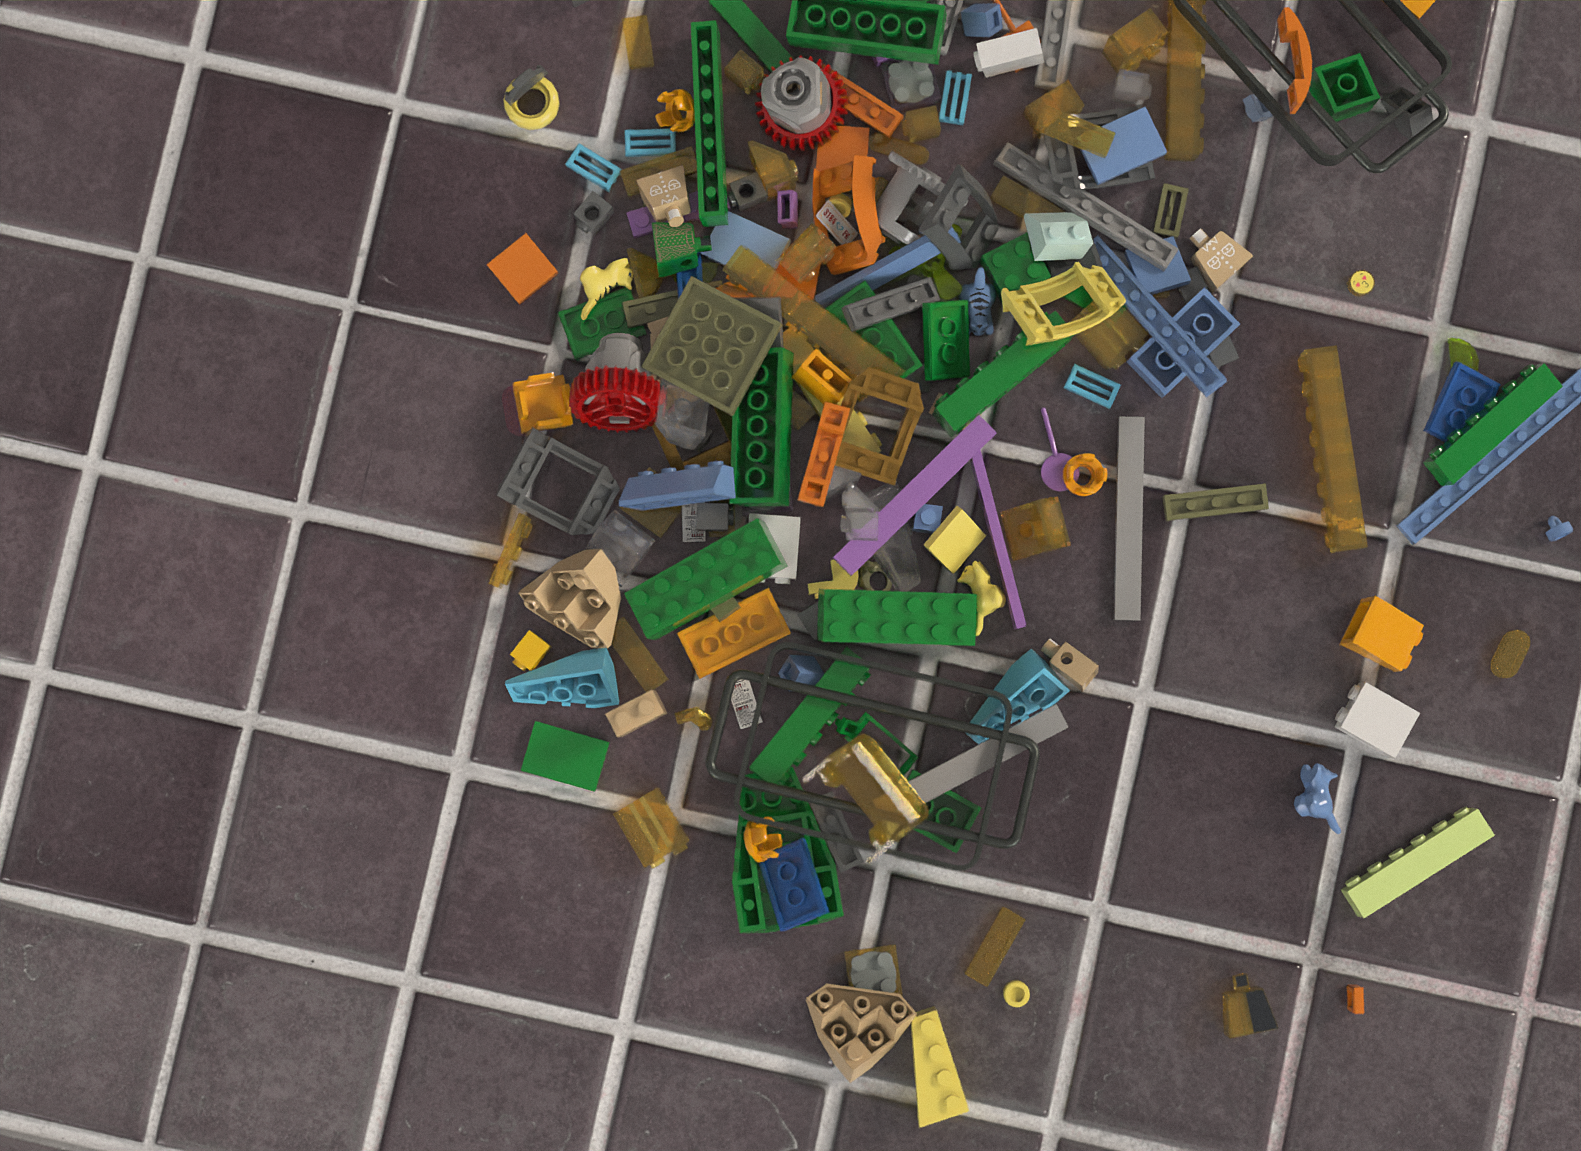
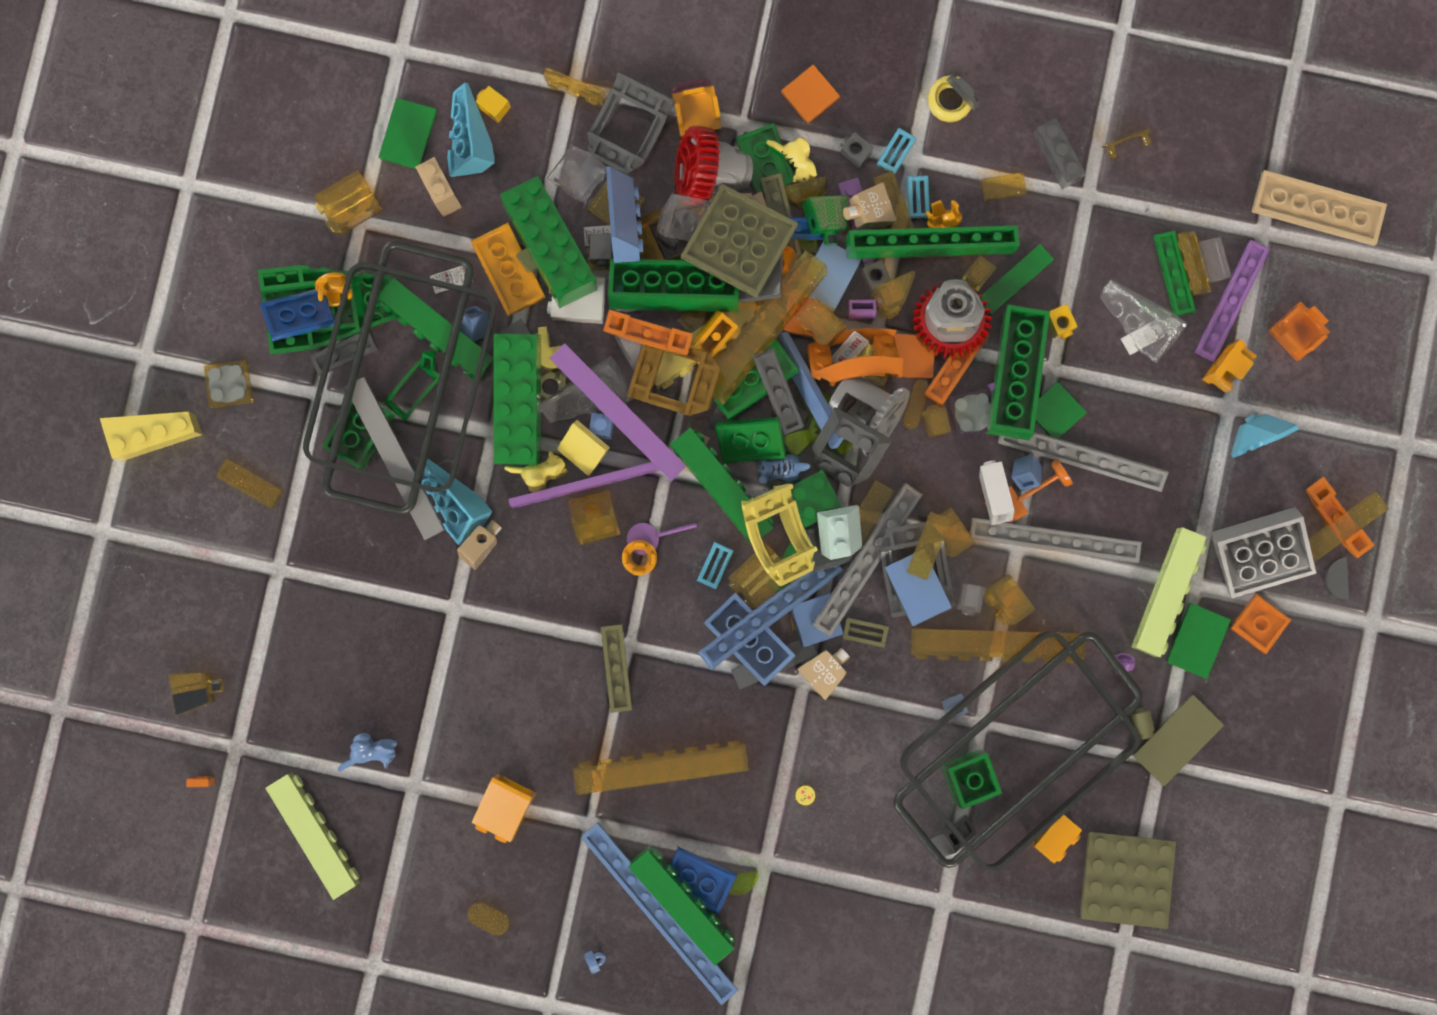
camera: 90 degrees right, 0 degrees up
(578, 597) = (535, 141): tan brick -> none
(637, 656) = (489, 189): clear yellow plate -> none
(696, 716) = (440, 238): clear yellow arm -> none
(858, 1025) = (184, 369): tan brick -> none
(861, 515) = (597, 364): clear slope -> none
(875, 788) = (371, 377): clear yellow windscreen -> none
(958, 78) = (978, 453): medium azure tile -> none
(1016, 993) = (210, 501): light yellow tile -> none
(1129, 518) = (603, 596): light grey tile -> none
(1292, 31) = (1015, 729): orange slope -> none
(1376, 719) = (432, 802): white brick -> none

